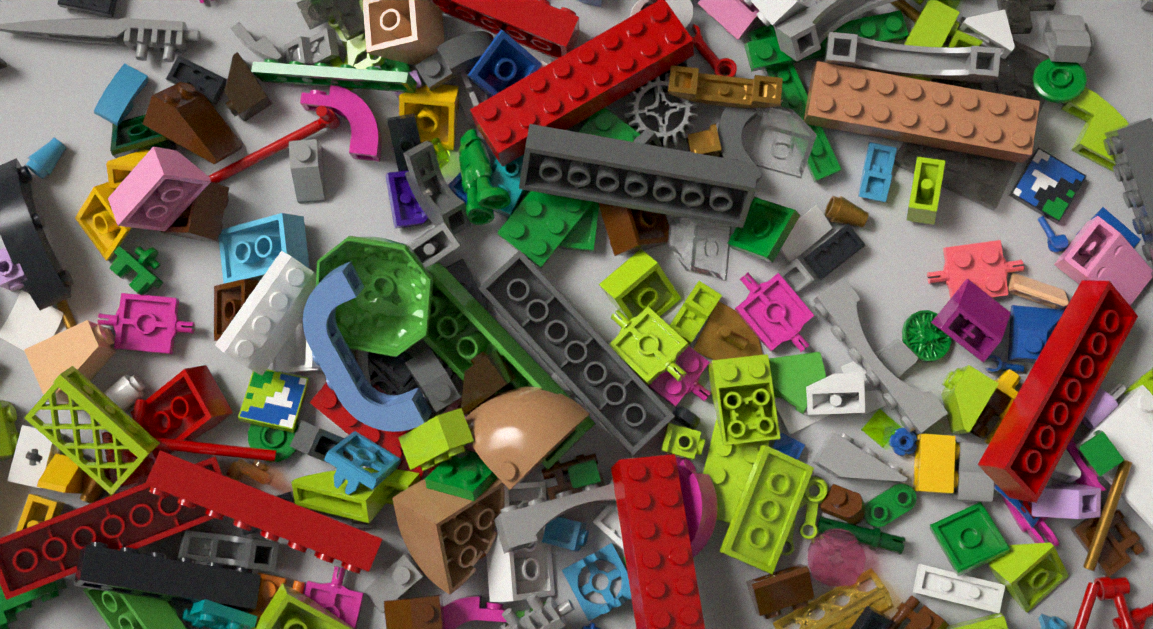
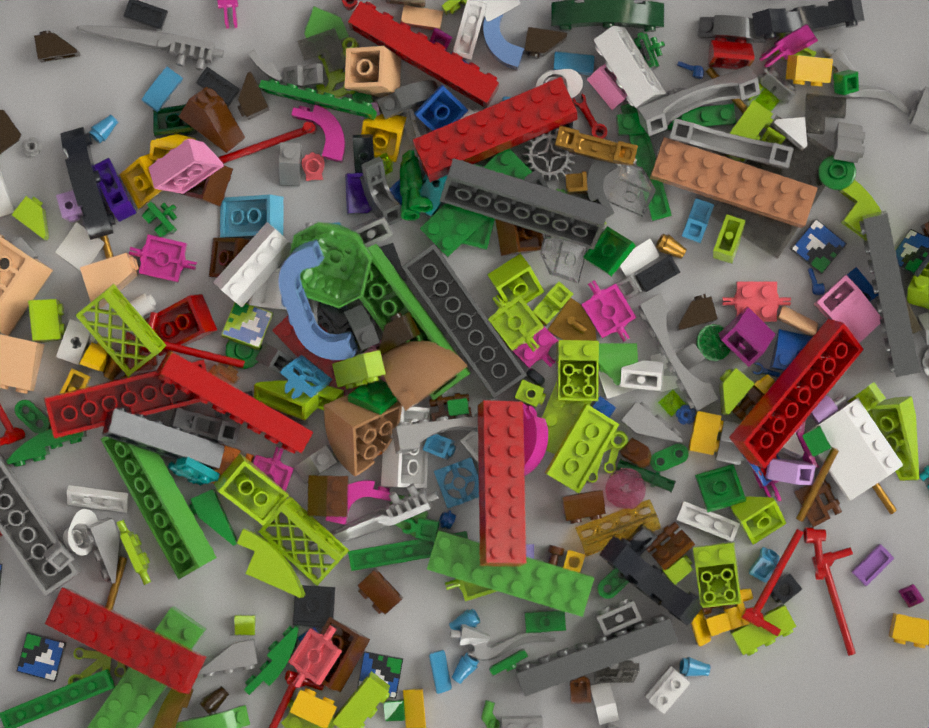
camera: 10 degrees right, 5 degrees up
(69, 240) = (114, 190): none -> dark purple slope
(340, 170) = (313, 166): none -> coral animal
(899, 297) = (698, 313): none -> dark brown slope

